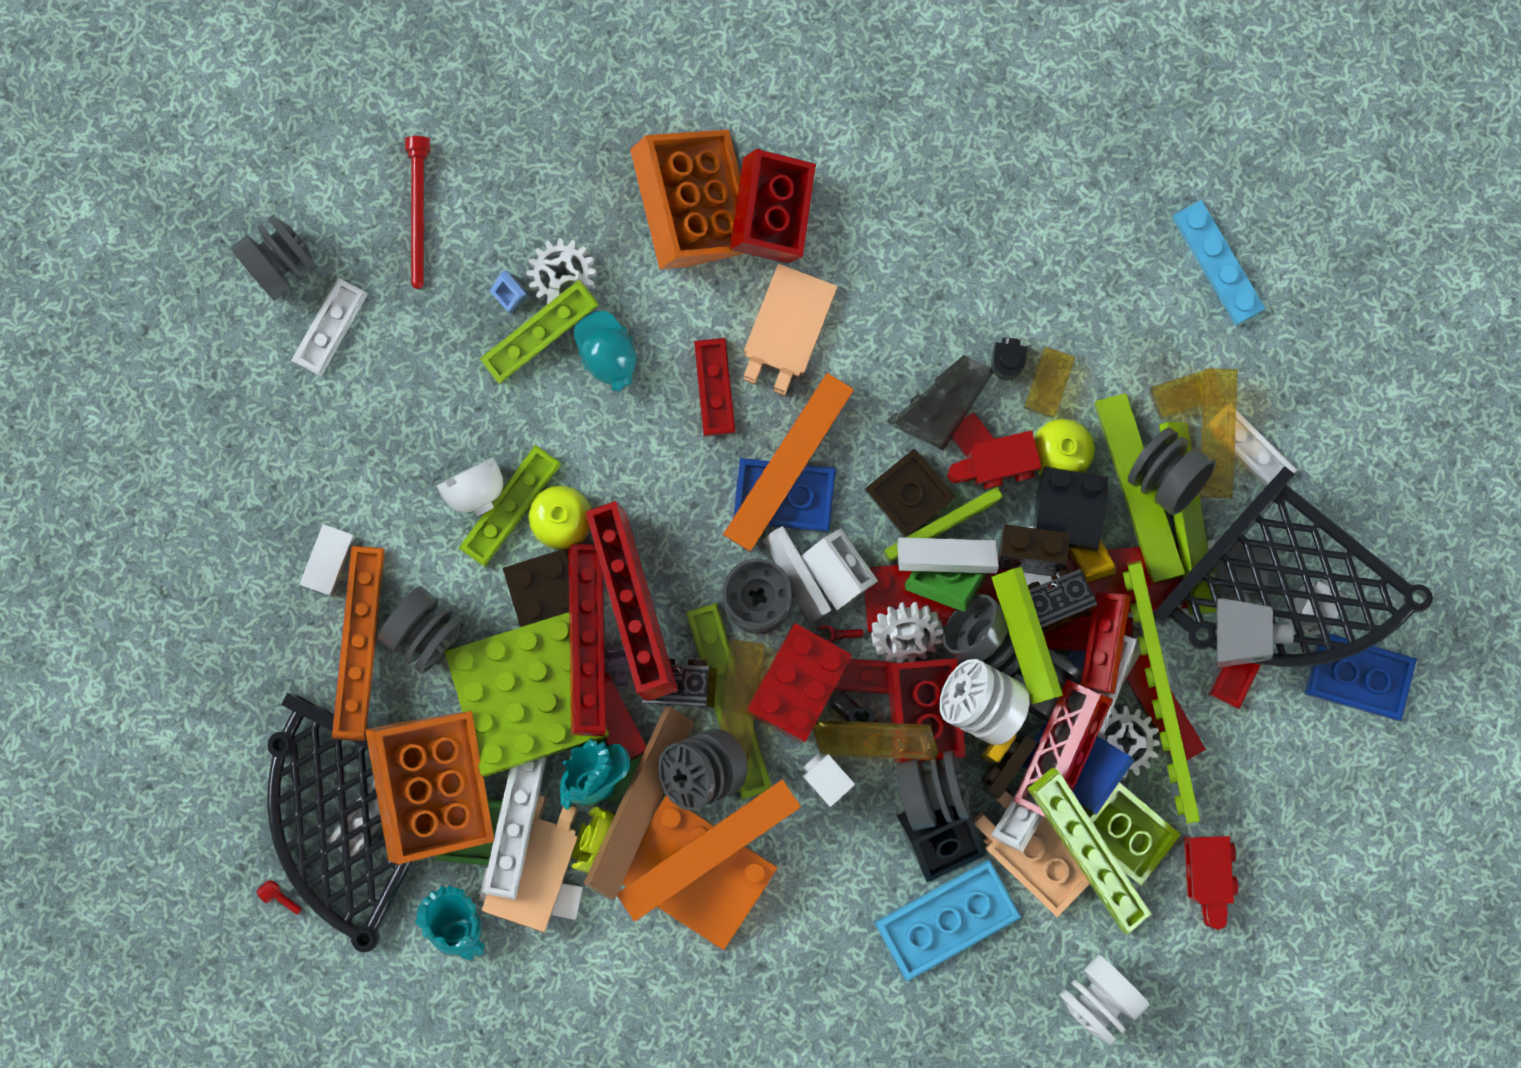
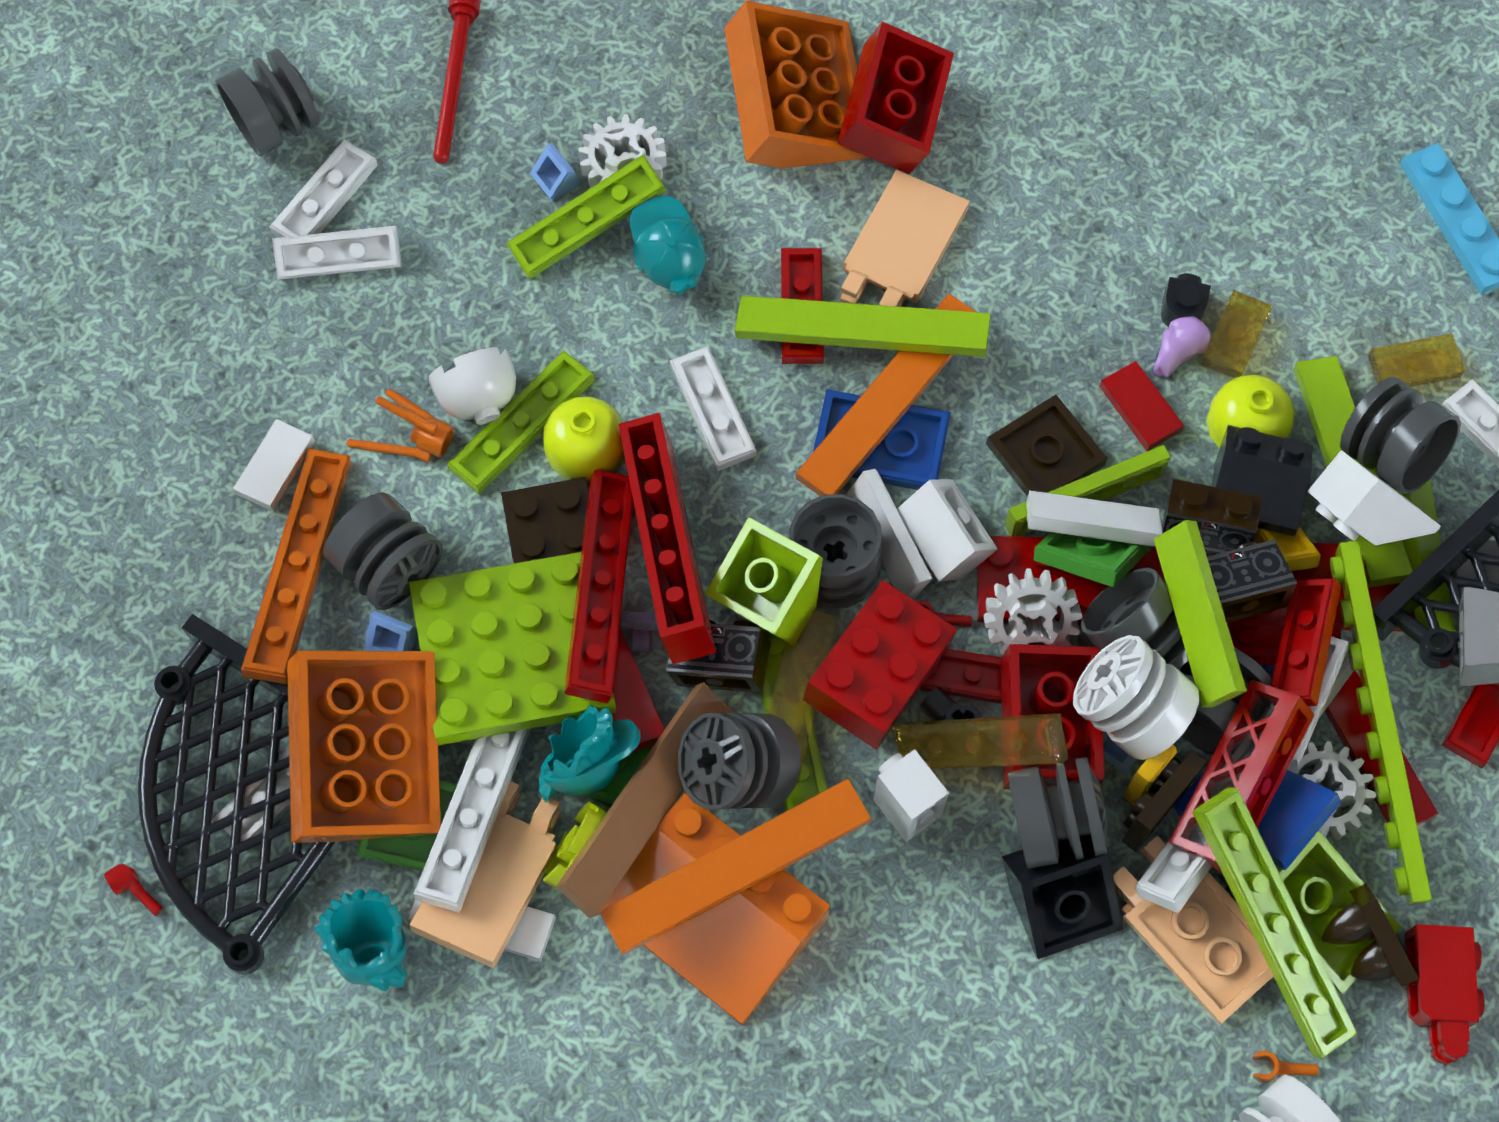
camera: 10 degrees right, 15 degrees down
(348, 378) = (337, 252): none -> white tile
(435, 689) = (389, 634): none -> light blue slope
(442, 526) = (429, 433): none -> orange plant
(654, 480) = (713, 408): none -> white tile
(710, 633) = (769, 581): none -> lime slope
(763, 407) = (863, 326): none -> lime tile
(945, 404) = (1099, 350): clear smoke wing -> none
(947, 920) = (1064, 1014): medium azure tile -> none
(998, 460) = (1166, 415): red hinge -> none
(1007, 392) = (1180, 343): none -> lavender animal
(1102, 942) = (1283, 1067): none -> orange hand
(1149, 531) = (1366, 505): none -> white slope
(1154, 839) = (1364, 921): none -> dark brown tile
(1219, 429) = (1461, 392): clear yellow tile -> none

